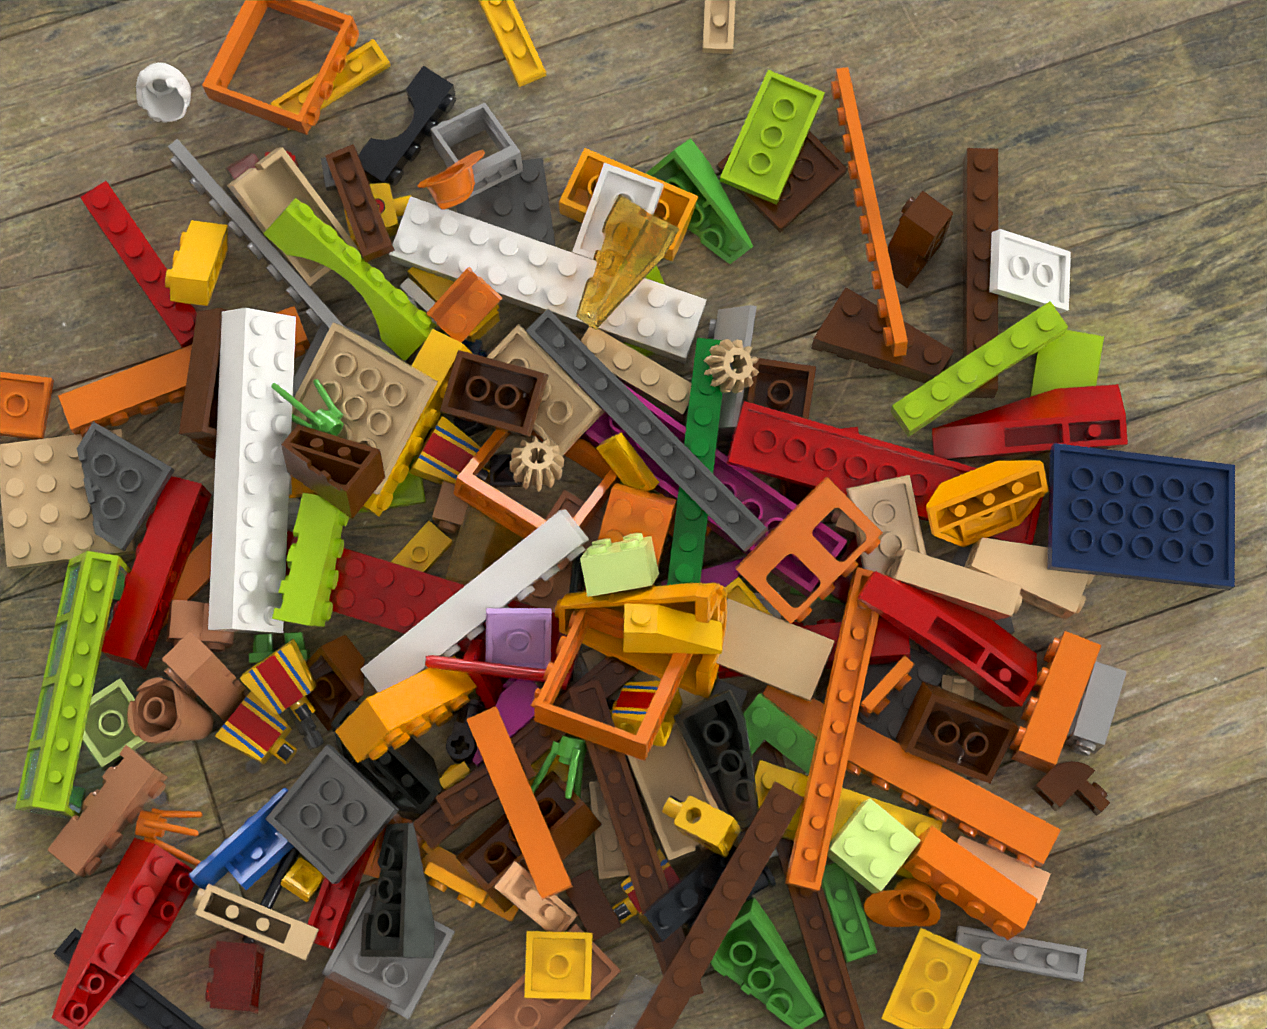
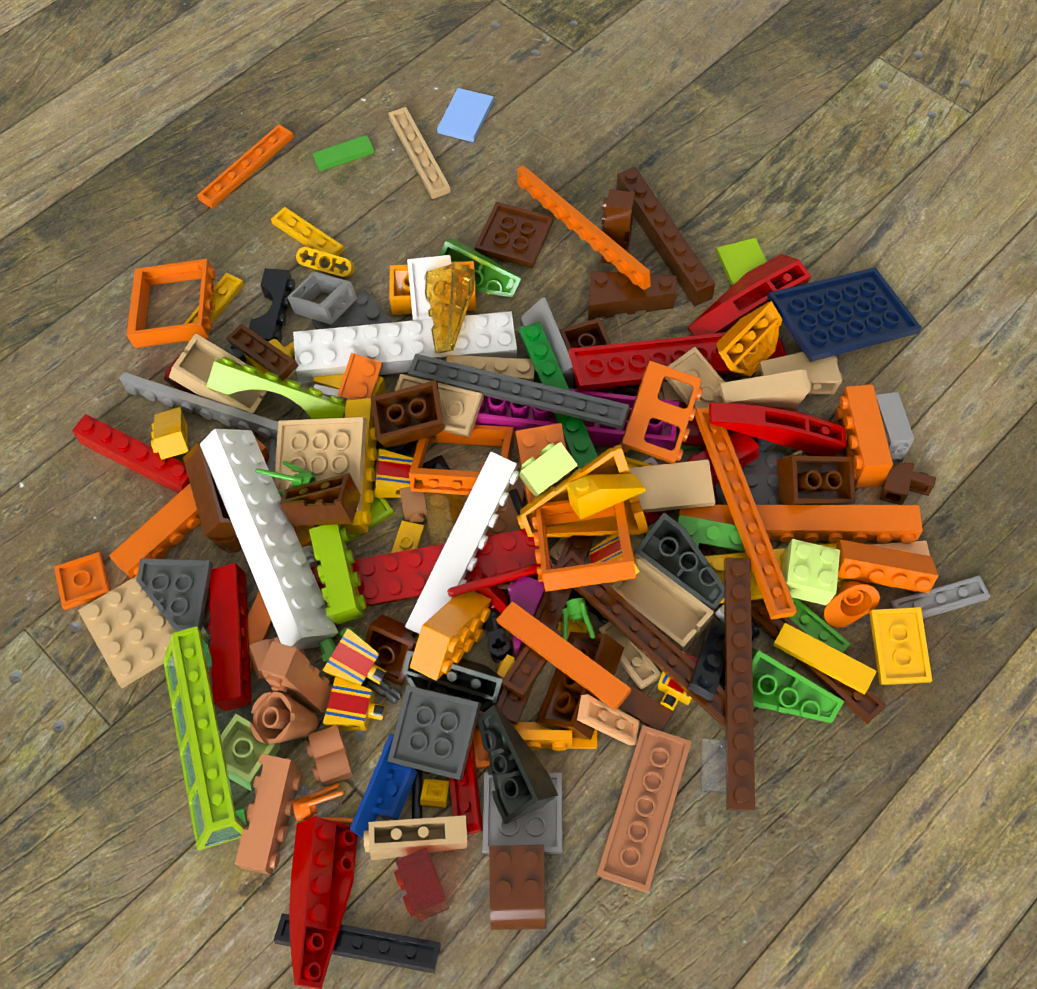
camera: 25 degrees left, 15 degrees down
(163, 92) = (102, 352): white hair -> none
(206, 776) = (330, 756): none -> nougat brick
(454, 183) = (317, 313): orange piece -> none
(496, 88) = (340, 260): none -> yellow beam
(519, 636) = (503, 549): lavender tile -> none
(536, 463) = (457, 442): tan gear -> none
(558, 965) = (648, 757): yellow plate -> none
(627, 463) = (513, 418): yellow tile -> none
(714, 829) = (695, 606): yellow torso -> none
(720, 369) = (550, 329): tan gear -> none
(772, 137) = (500, 217): lime plate -> none
(830, 955) = (825, 658): none -> yellow tile
(895, 679) = (758, 469): orange plate -> none
(978, 368) = (687, 292): lime arch -> none
(1029, 270) = (693, 218): white plate -> none

